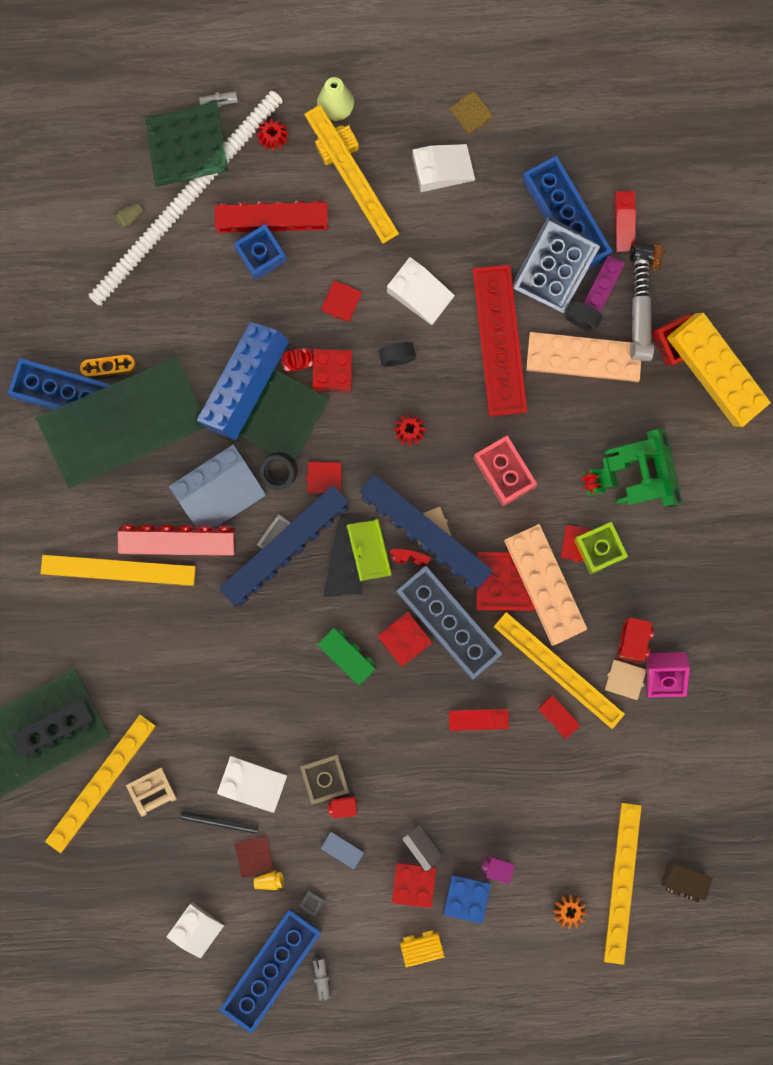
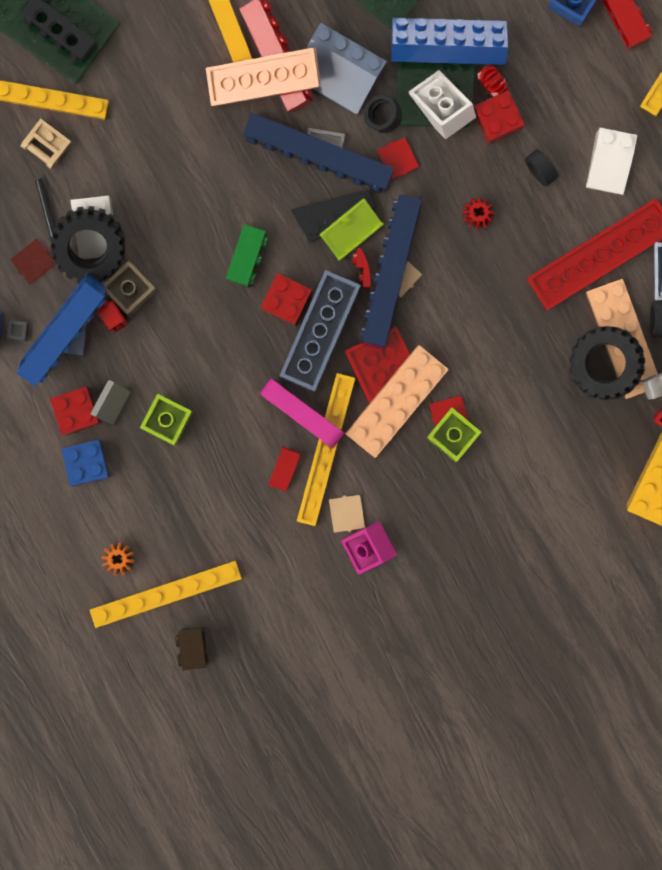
camera: 60 degrees right, 5 degrees up
(192, 561) = (263, 77): none -> light nougat plate
(269, 881) = (18, 284): yellow cone -> none
(290, 802) = (88, 220): none -> black tyre
(297, 413) = (443, 104): none -> white slope
(335, 860) = (61, 330): none -> blue brick
(341, 301) = (567, 95): red piece -> none
(422, 948) = (23, 444): yellow brick -> none
(463, 803) = (166, 420): none -> lime brick
(479, 720) = (247, 400): red slope -> none
(497, 869) = (122, 476): magenta brick -> none
(505, 471) = (482, 316): coral brick -> none
(516, 675) = (301, 413): none -> dark pink beam
(601, 354) = (607, 389): none -> black tyre
(635, 640) = (384, 503): red brick -> none
(651, 489) = (537, 467): green container -> none

